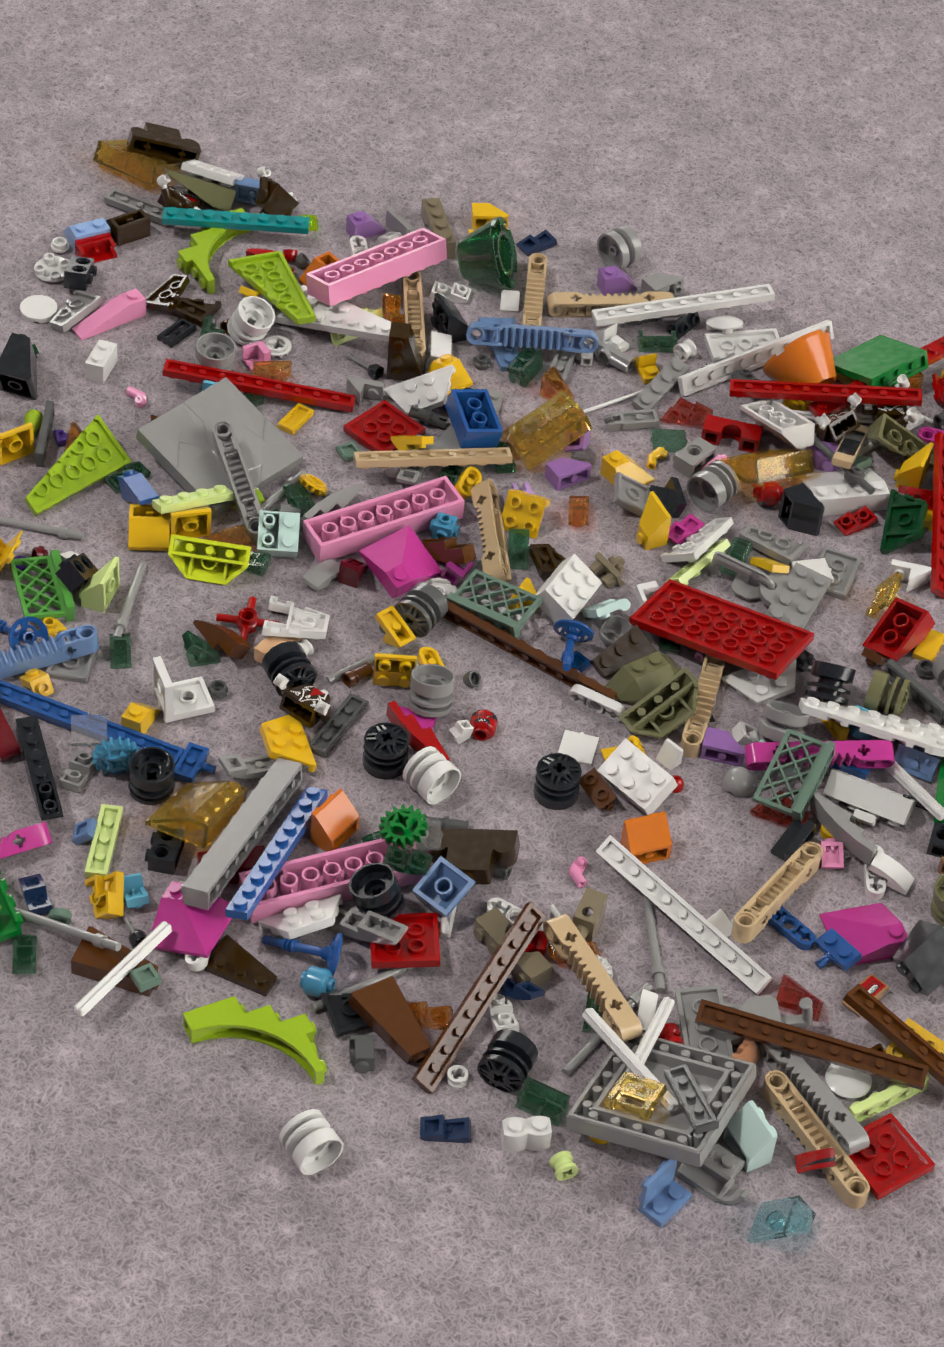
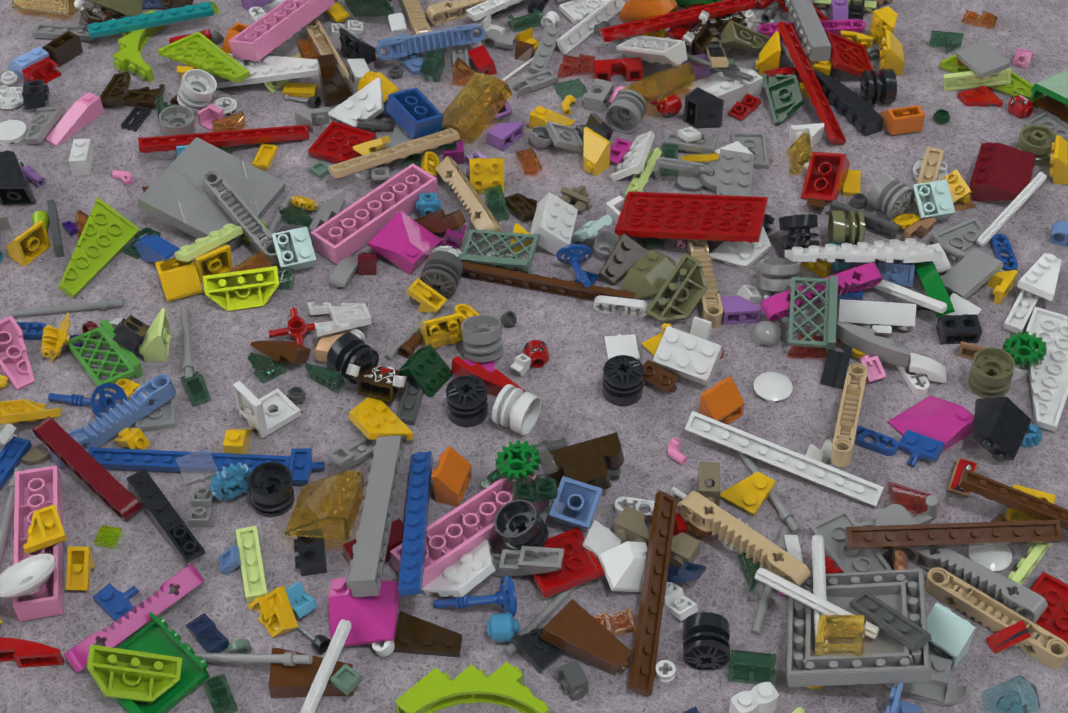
camera: 15 degrees left, 0 degrees up
(43, 368) = (33, 176): none -> medium lavender pin
(255, 680) = (327, 377): none -> clear green slope
(360, 706) = (427, 370): none -> dark green bracket
(367, 351) = (300, 89): none -> yellow tile
(447, 270) = (337, 13): none -> yellow slope
(454, 935) = (600, 539): none -> white piece
(463, 964) = (625, 566): none -> white slope
(502, 481) = (457, 155): none -> magenta panel
(583, 377) = (482, 60): none -> red hinge
(603, 487) = (540, 137): none -> light grey hair
(631, 937) = (750, 492): none -> yellow wing
(636, 379) = (524, 51): none -> reddish brown slope
(716, 839) = (773, 386): none -> white dish
(772, 534) = (689, 134): none -> white tile

